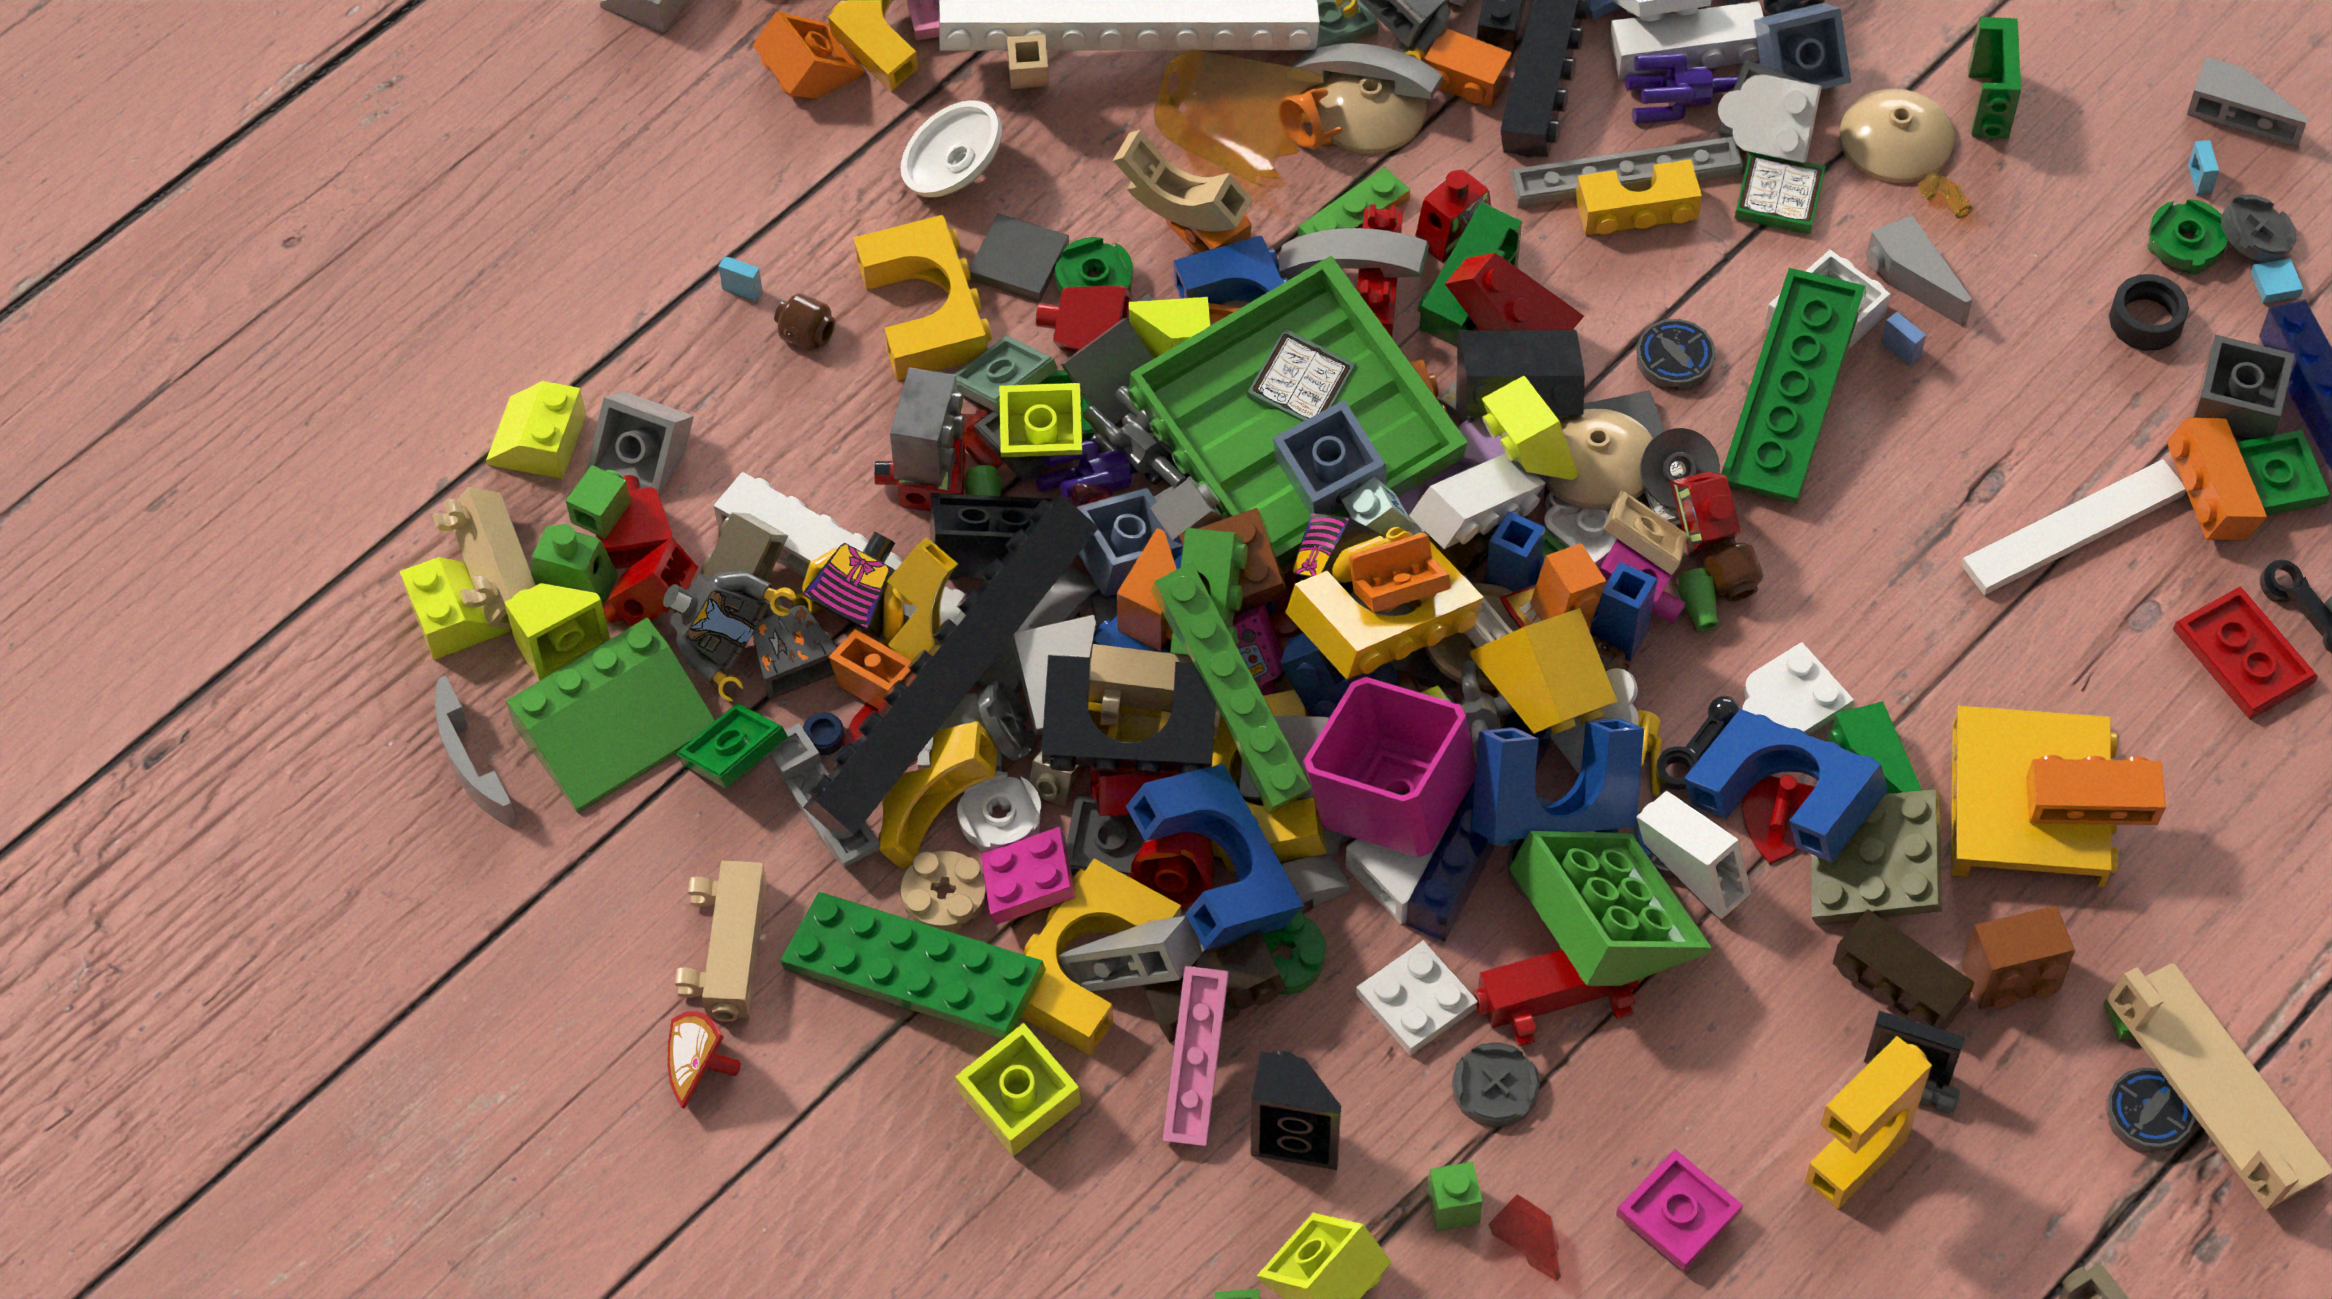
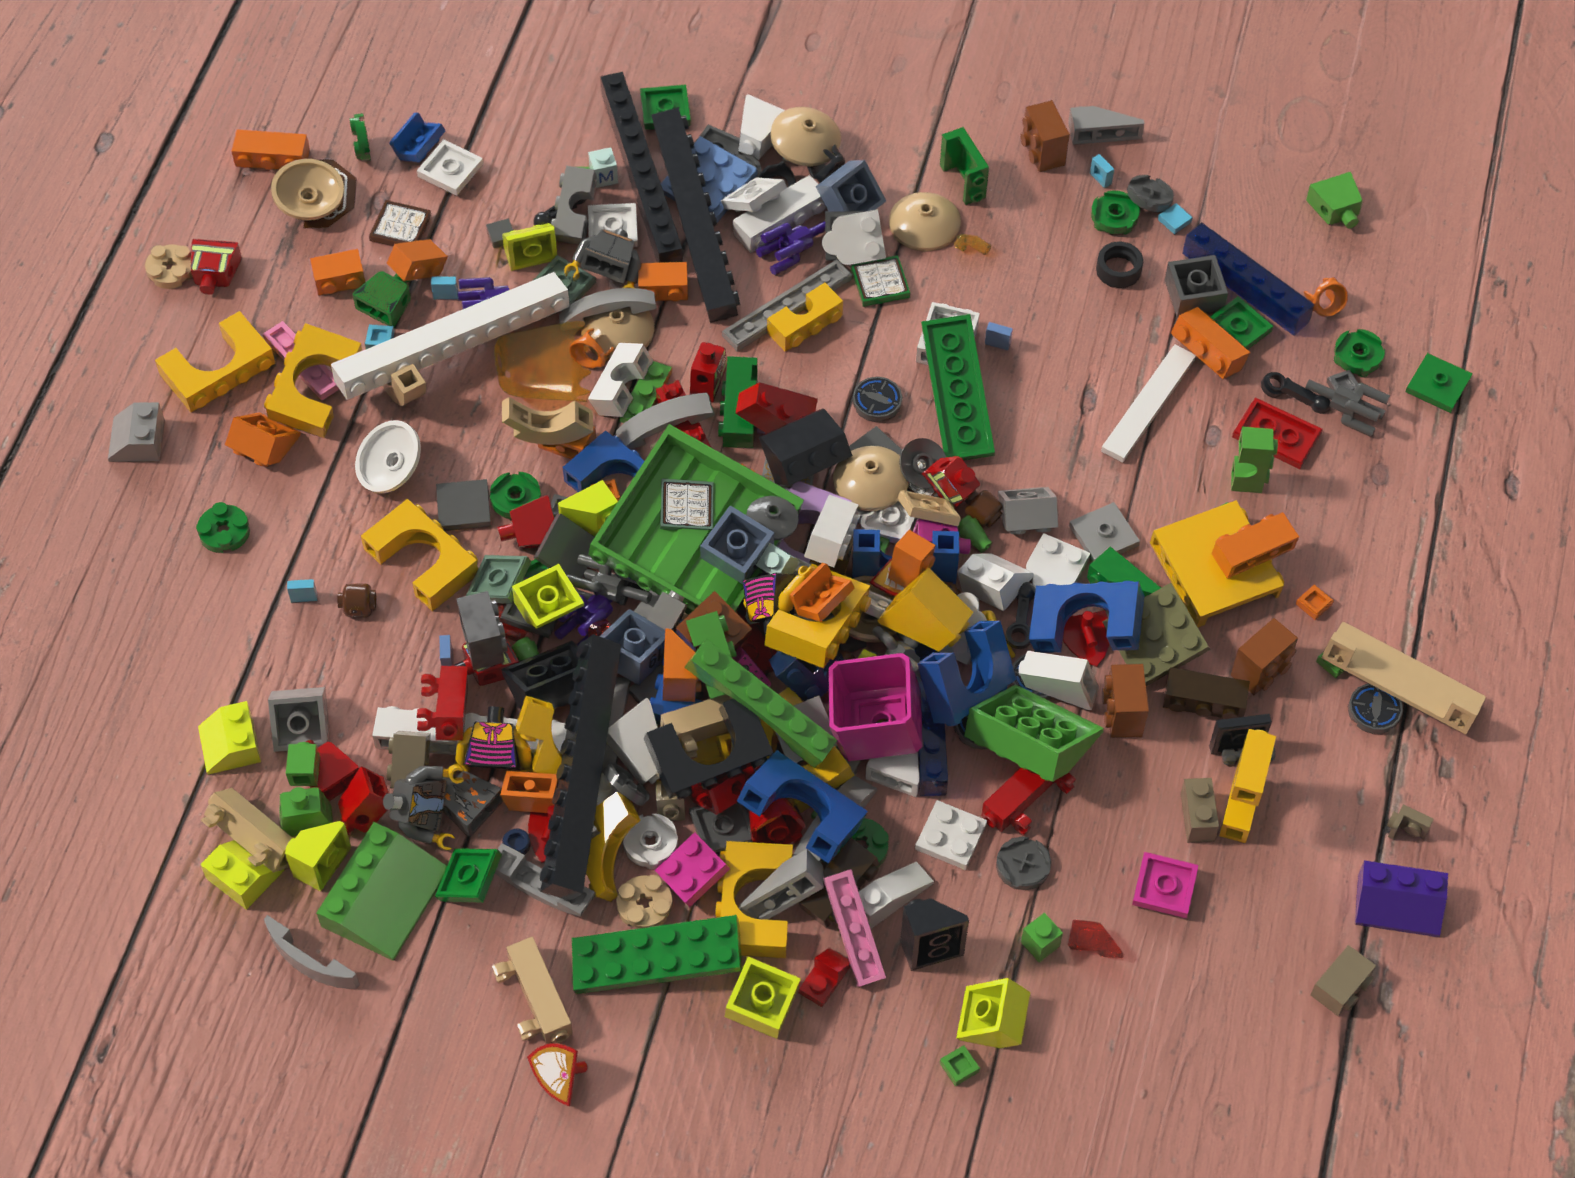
camera: 30 degrees left, 0 degrees up
(691, 136) = (220, 515): none -> green plate
(833, 508) = (451, 703): none -> red brick
(876, 441) = (446, 650): none -> medium blue tile
(1130, 1103) = (825, 976): none -> red slope
(1268, 1028) = (893, 891): none -> white slope
(1347, 158) = (627, 363): none -> white arch
(1409, 460) = (781, 523): none -> dark grey dish
(1528, 430) = (834, 477): neon yellow slope -> none
(1686, 671) = (992, 579): none -> white slope
(1771, 925) = (1125, 700): none -> dark orange brick
(1791, 1129) = (1199, 810): none -> dark tan brick
(1797, 599) = (1028, 509): none -> light grey slope
(1898, 676) = (1104, 529): none -> light grey plate
(1916, 268) = (981, 292): light grey slope -> none
(2141, 82) = (1045, 136): none -> dark orange brick
(2152, 918) = (1314, 602): none -> orange tile
(2170, 670) = (1254, 461): none -> bright green arch

